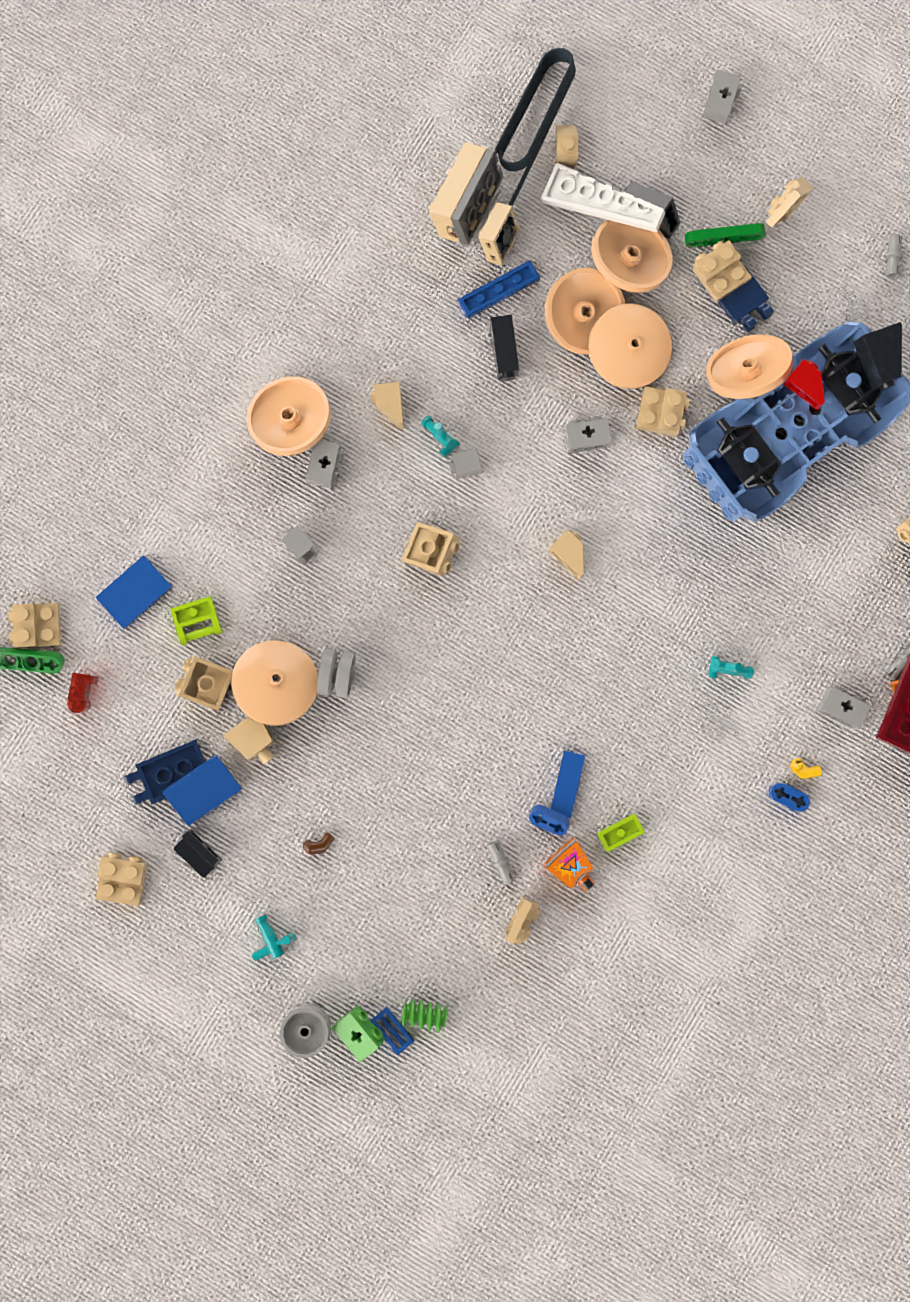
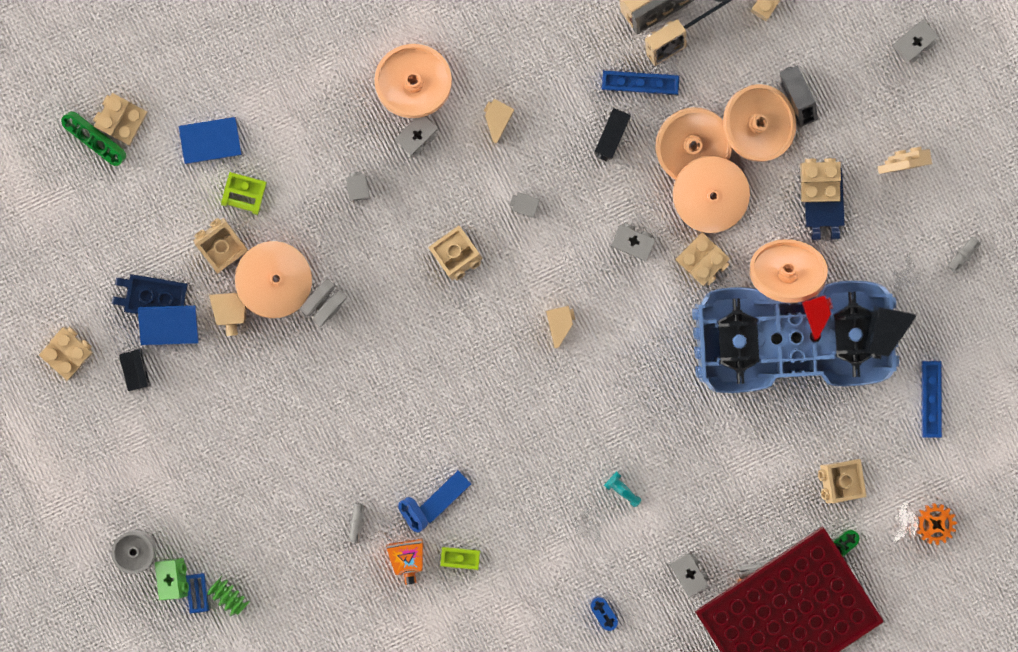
camera: 40 degrees right, 5 degrees up
(79, 692) = (121, 192): clear red leg -> none
(273, 945) = (149, 474): teal piece -> none
(319, 846) = (227, 423): reddish brown arm -> none
(440, 435) = (519, 170): teal piece -> none
(518, 928) = (338, 578): tan plate -> none
(584, 195) = (753, 53): white wing -> none
(734, 234) = (843, 153): green beam -> none
(803, 771) = (627, 600): yellow arm -> none

